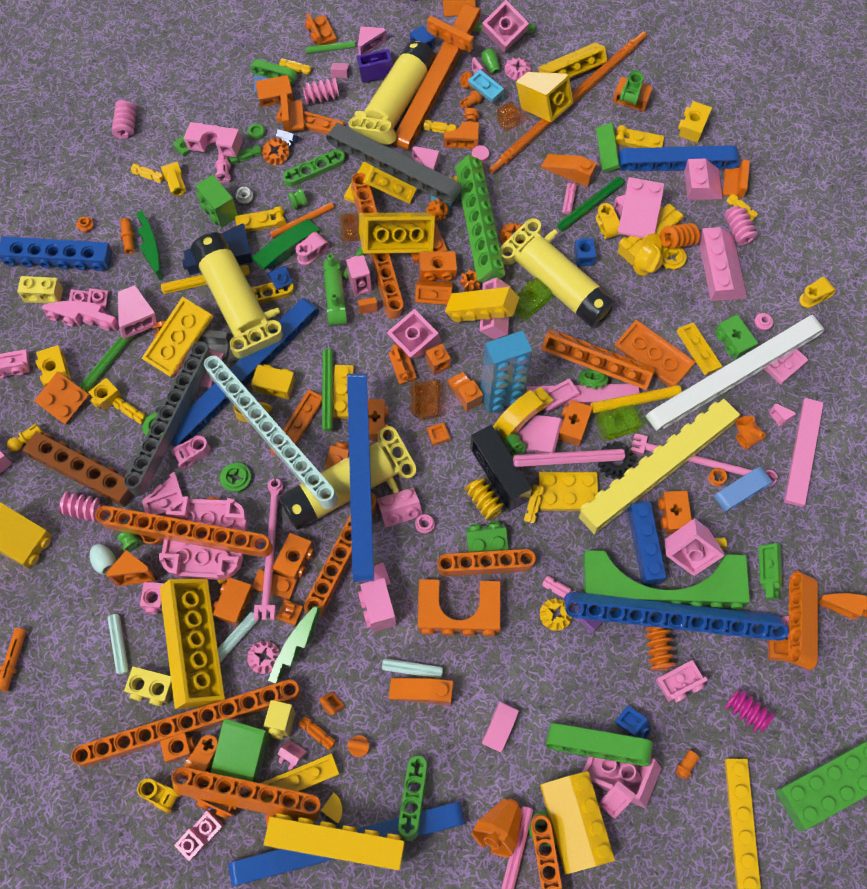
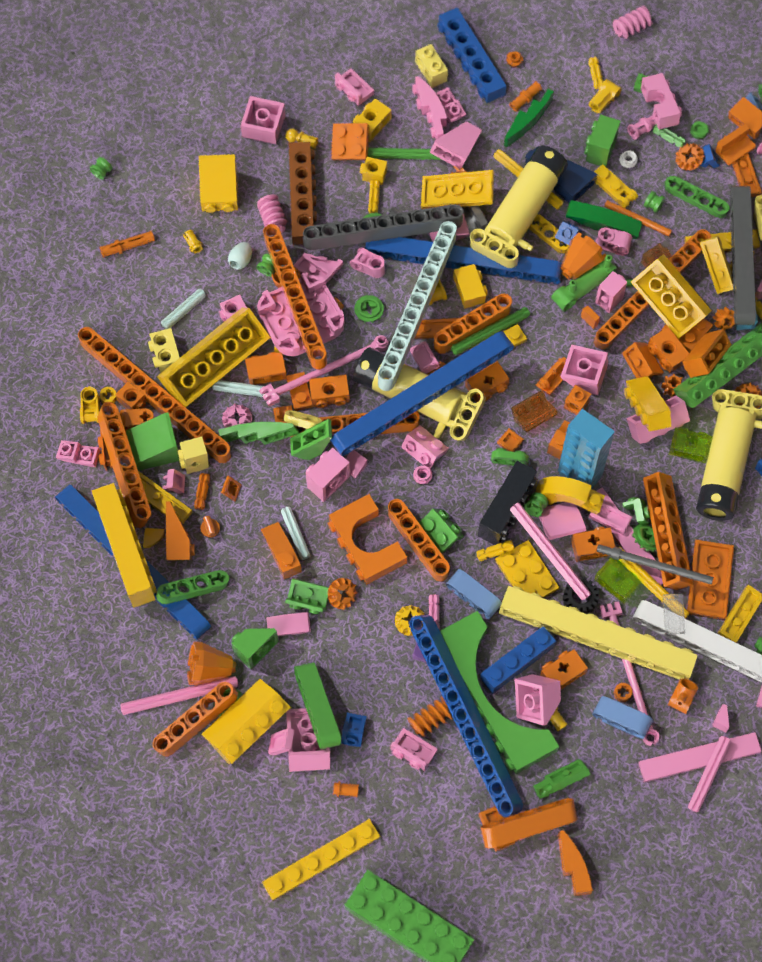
camera: 60 degrees right, 0 degrees up
(60, 595) = (193, 242): none -> yellow pin
(129, 571) = (242, 279): orange slope -> none
(151, 771) = (104, 392): none -> yellow bush
(310, 278) = (581, 256): none -> orange cone
(313, 595) = (301, 419): none -> light yellow plate
(315, 406) = (478, 316): none -> orange beam
(319, 456) = (424, 357): none -> bright pink tile
(338, 598) = (311, 441): none -> bright green slope
(355, 784) = (178, 541): none -> orange slope
(459, 437) = (505, 457): none -> bright green plate
(463, 238) = (707, 353): none -> orange brick
(483, 692) = (308, 596): none -> bright green bracket
(484, 499) = (473, 507): yellow piece -> none
(492, 653) = (335, 596): none -> orange gear
(507, 772) = (254, 644): none -> bright green slope
(562, 544) = (473, 592): none -> medium blue beam
(571, 368) = (641, 509): none -> bright green bracket
(600, 407) = (617, 553): none -> dark grey bar
(677, 395) = (673, 614): none -> clear tile
(750, 711) = (420, 815): dark pink piece -> none
(825, 452) = (709, 774): none -> bright pink axle

